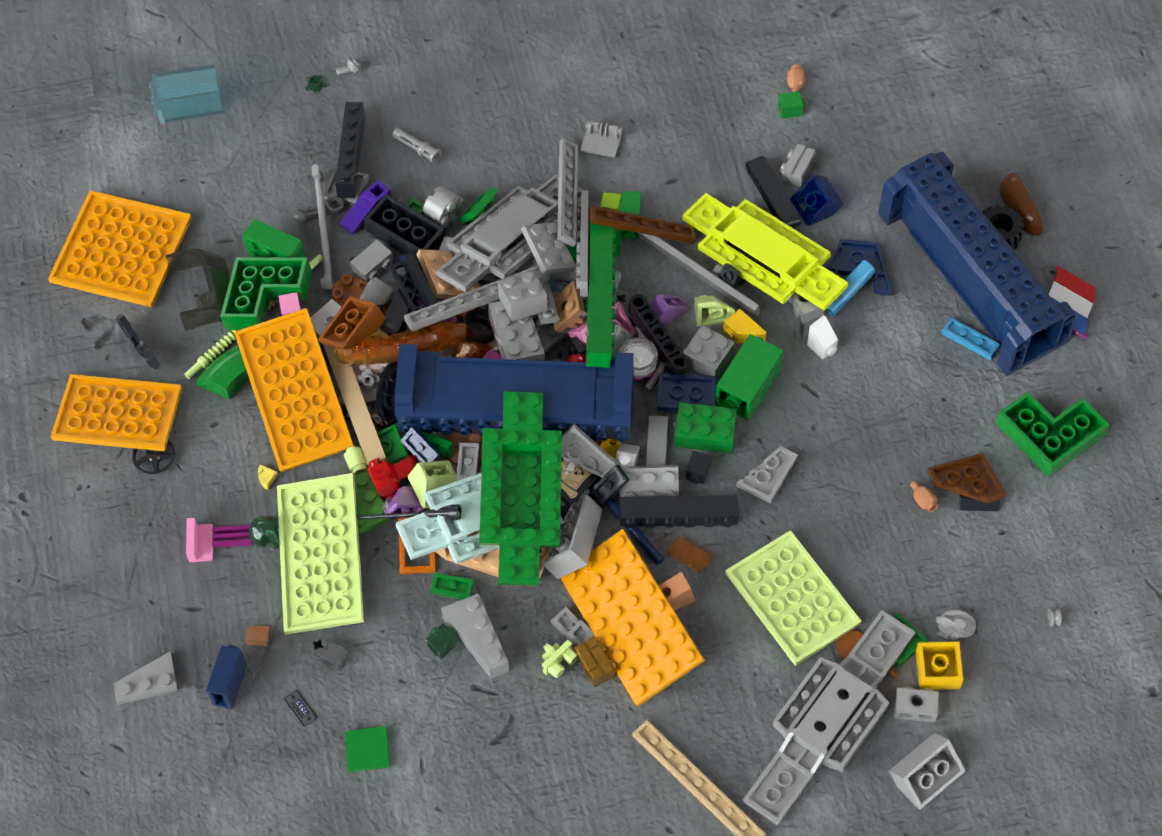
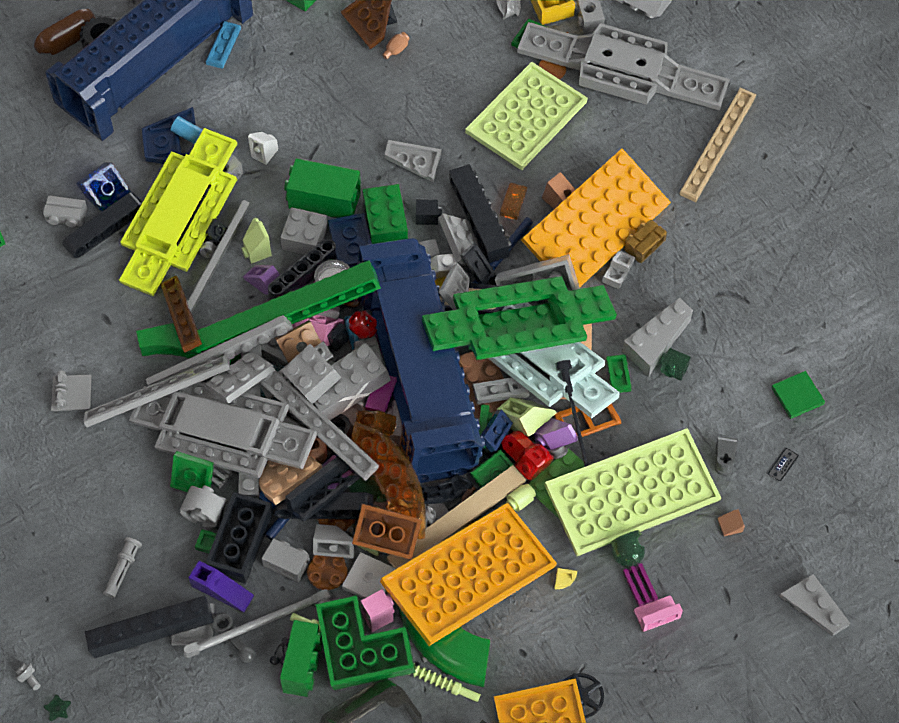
camera: 110 degrees left, 0 degrees up
(226, 676) = (789, 525): dark blue brick -> none
(555, 655) = (653, 271): yellowish green hips -> none
(611, 201) = (148, 363): lime tile -> none
(740, 326) = (268, 212): yellow slope -> none

